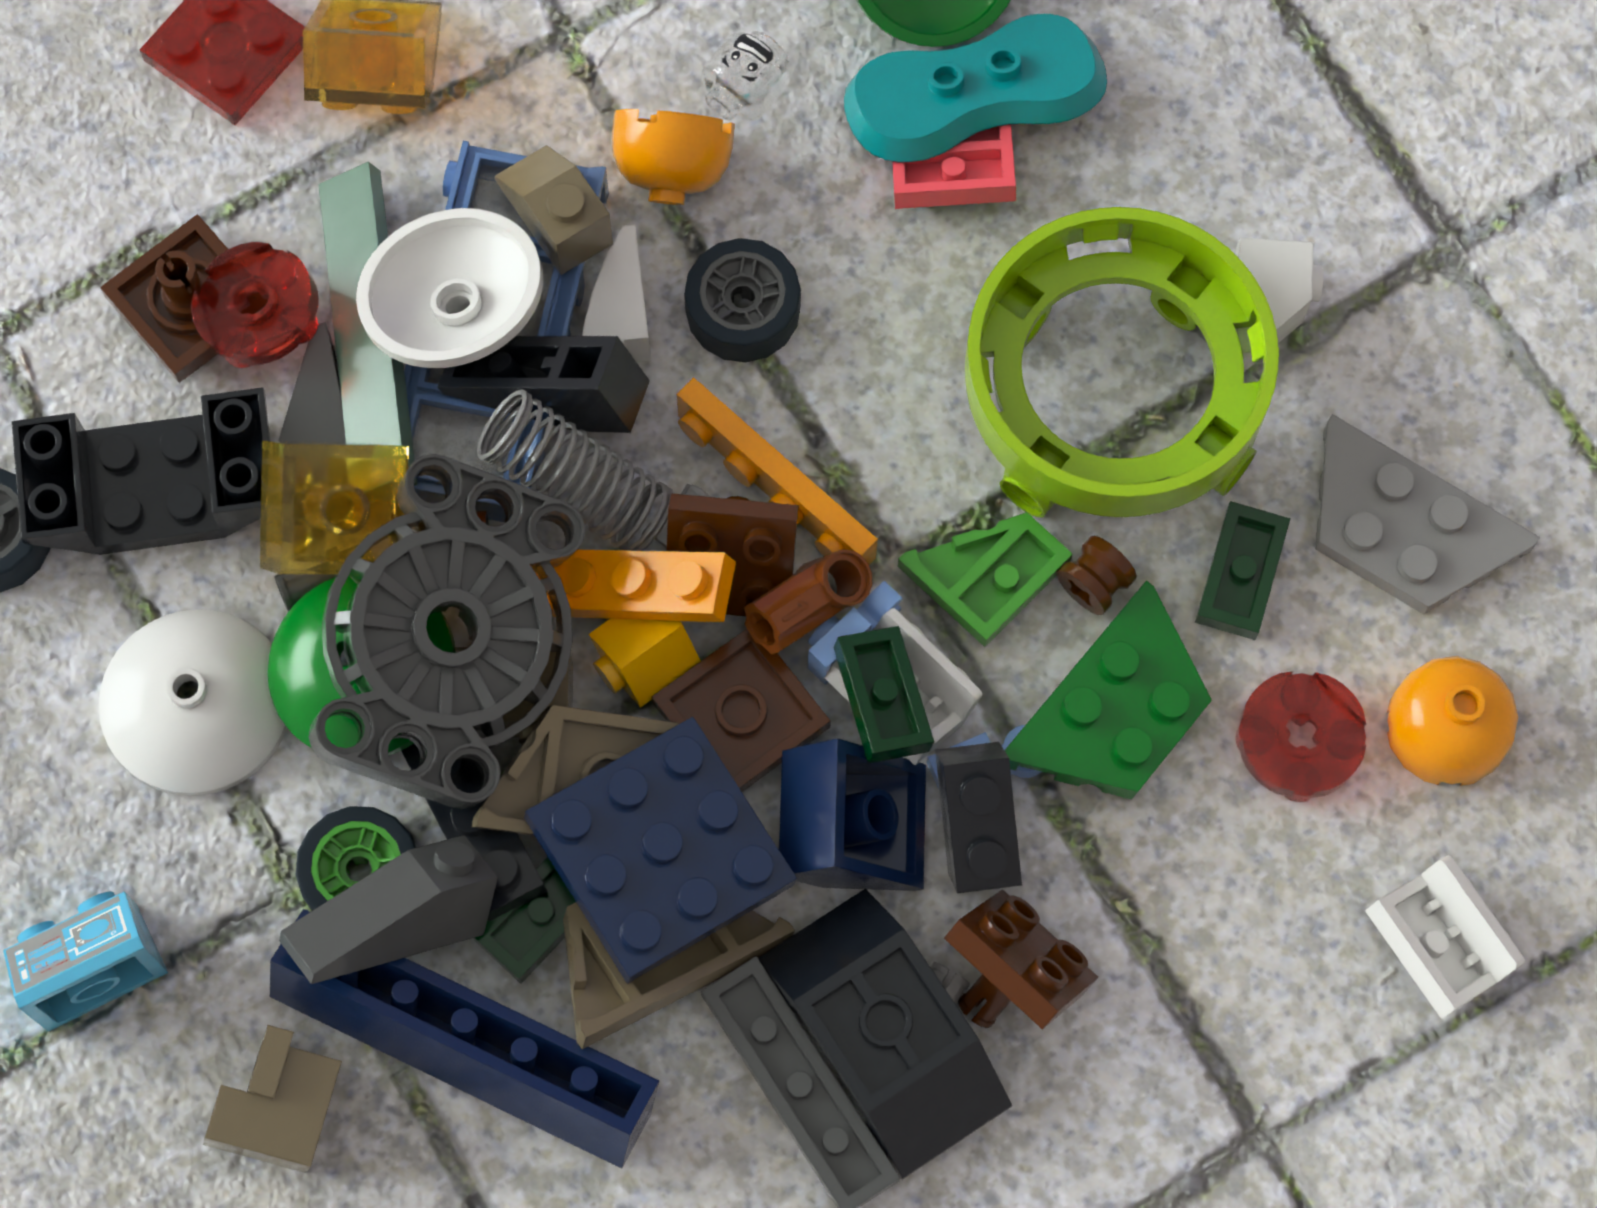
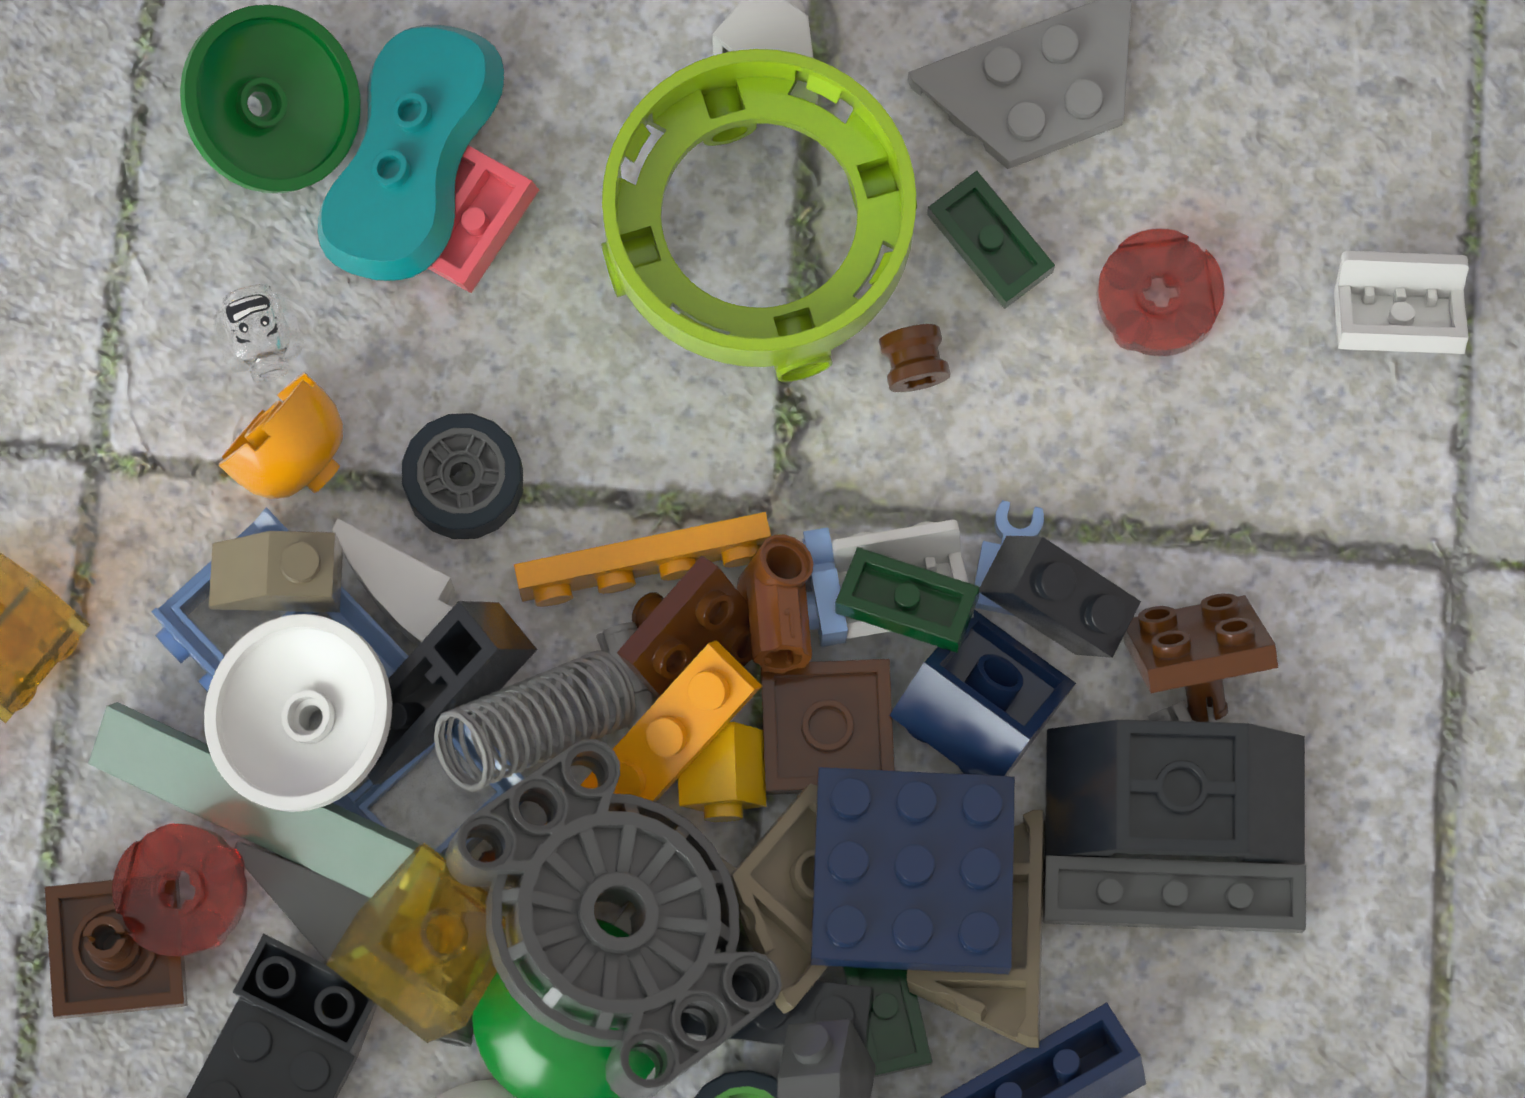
camera: 55 degrees left, 5 degrees up
(989, 573) = (849, 444): bright green wing -> none
(1117, 705) = (1033, 418): green wing -> none
(1452, 721) = (1229, 168): light orange cylinder -> none

